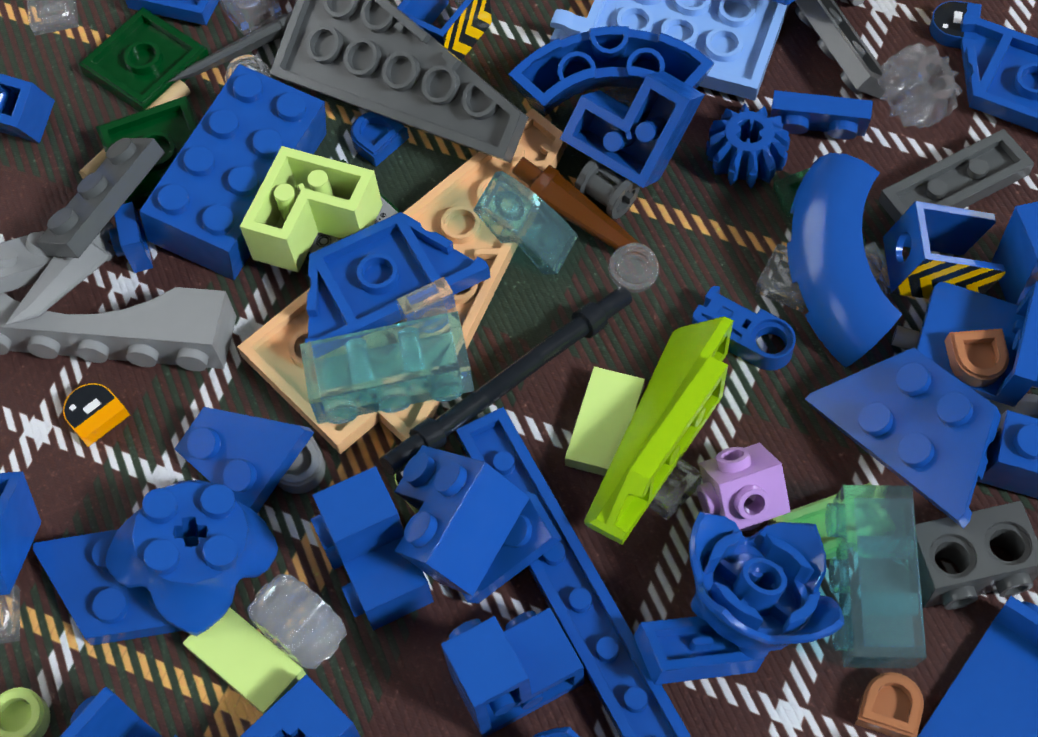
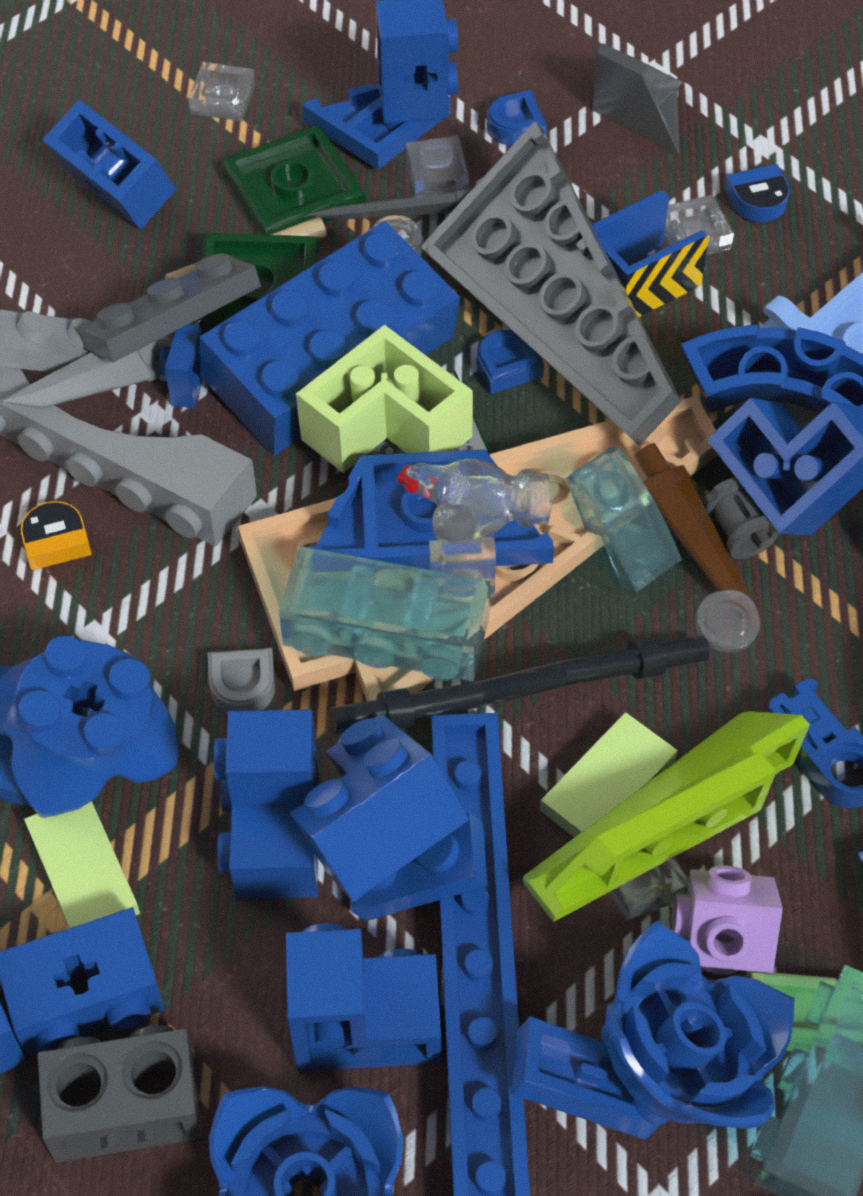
camera: 20 degrees right, 5 degrees down
(242, 452) = (187, 643): blue wing -> none
(297, 621) = (153, 847): clear gear -> none
(418, 251) = (478, 497): none -> clear animal

